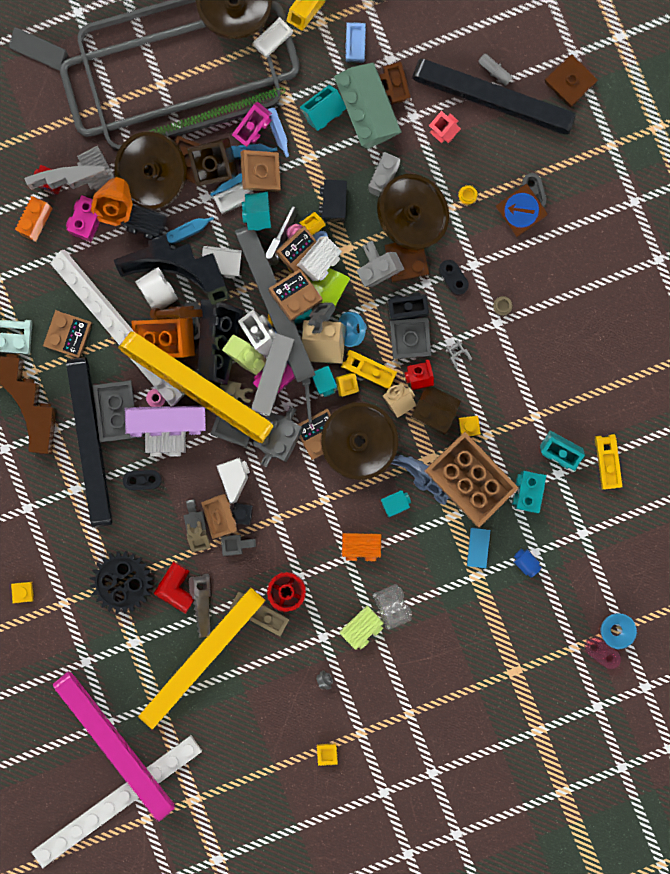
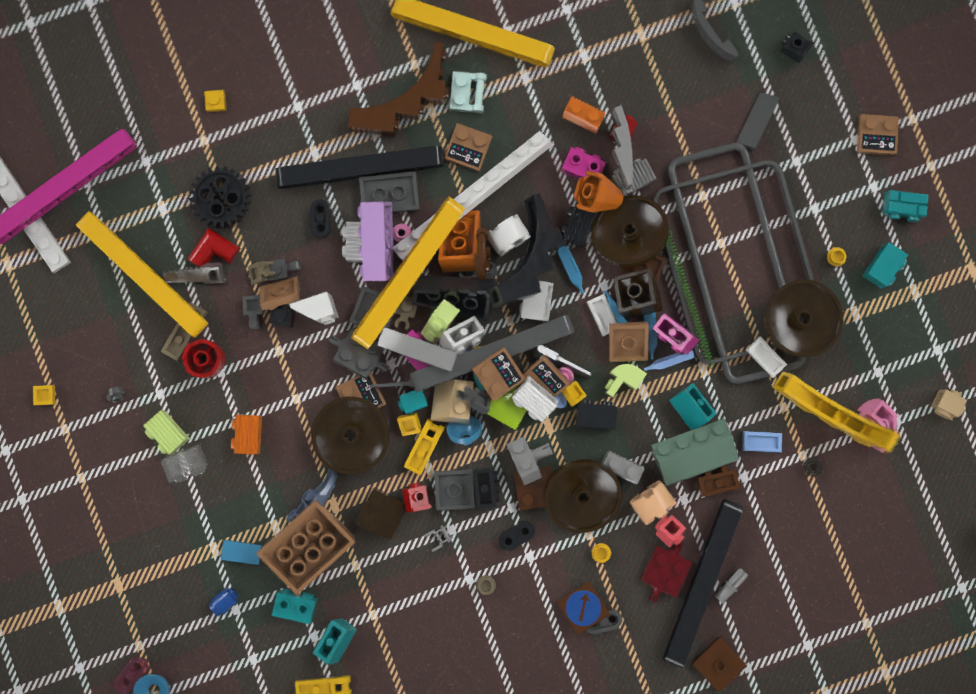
camera: 95 degrees right, 0 degrees up
(256, 211) = (586, 337): teal brick -> none
(292, 174) = (626, 374): none -> yellowish green brick
(396, 503) = (288, 470): teal brick -> none
(399, 399) = (392, 477): tan brick -> none
(417, 144) = (653, 502): none -> light nougat brick
(469, 425) = (364, 547): yellow plate -> none
(484, 132) = (666, 571): none -> dark red plate

